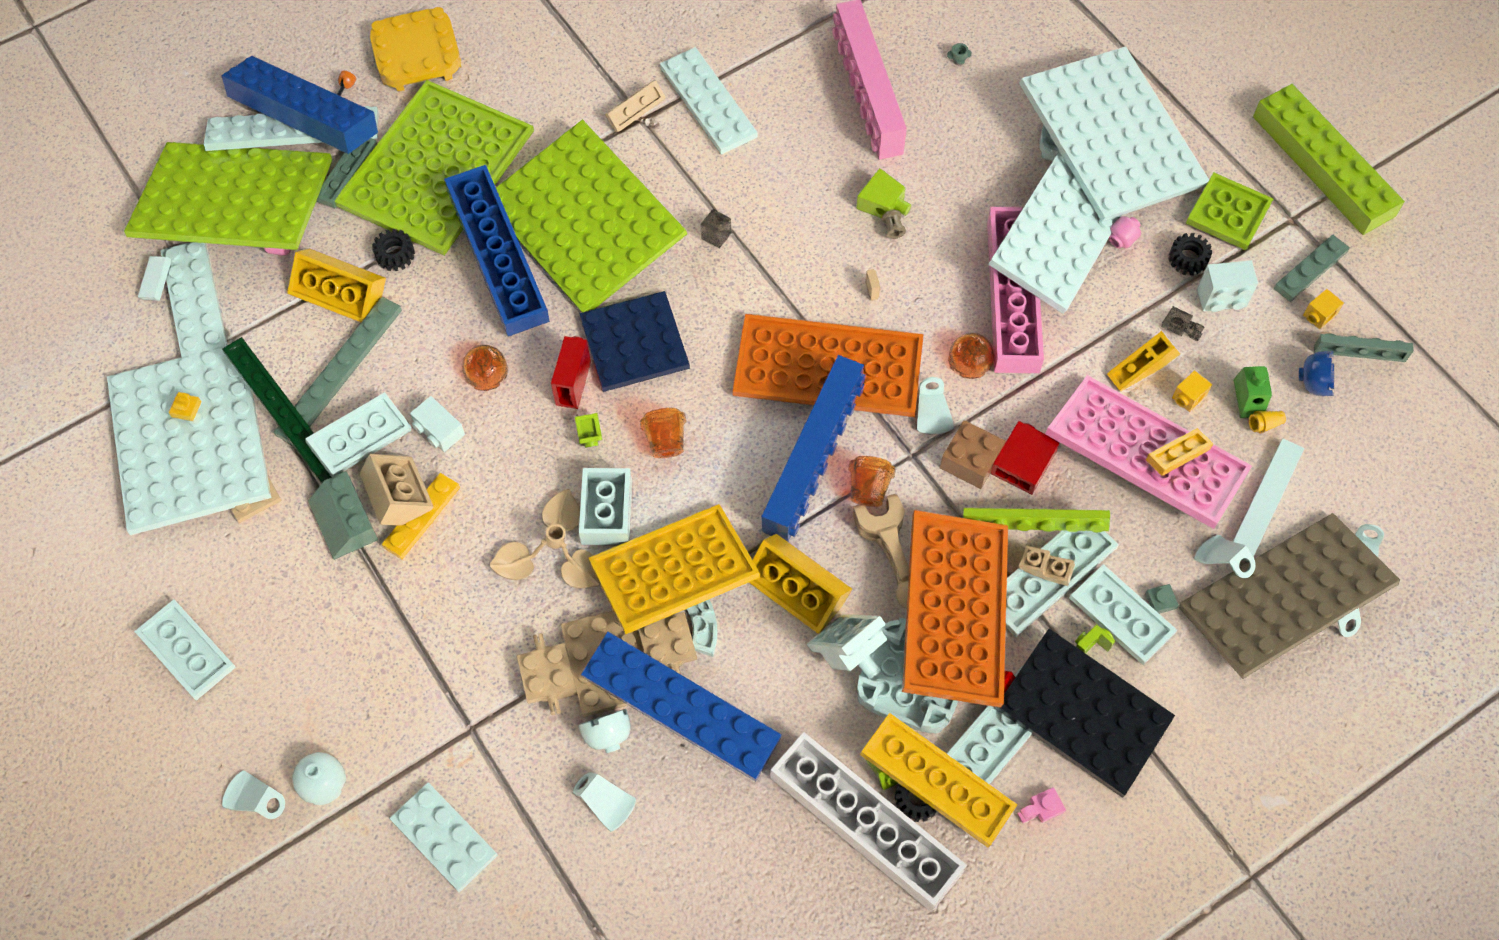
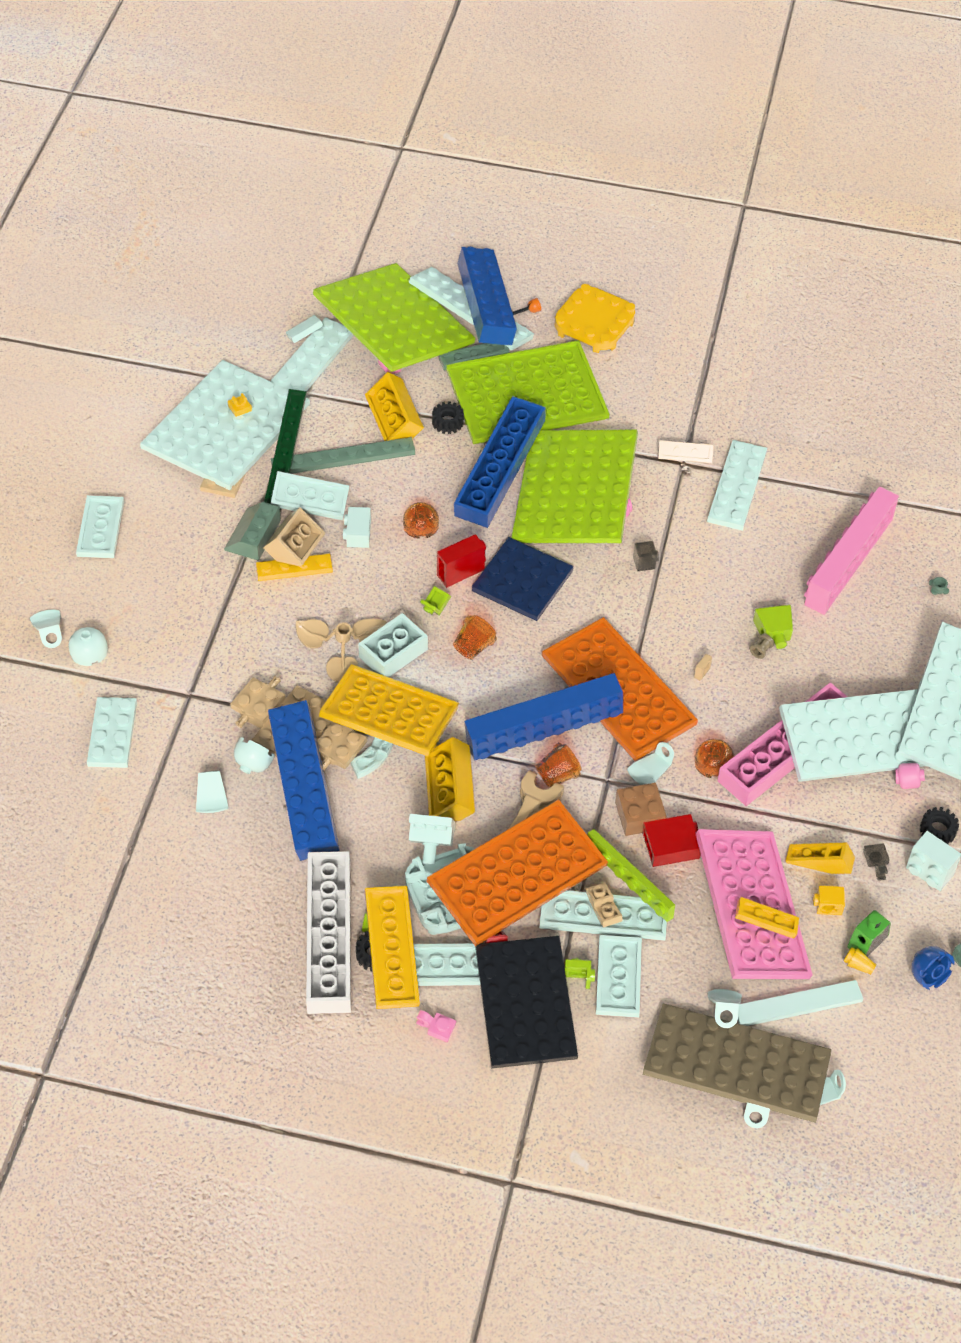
camera: 45 degrees right, 10 degrees down
(1162, 598) = (655, 992): sand green plate -> none

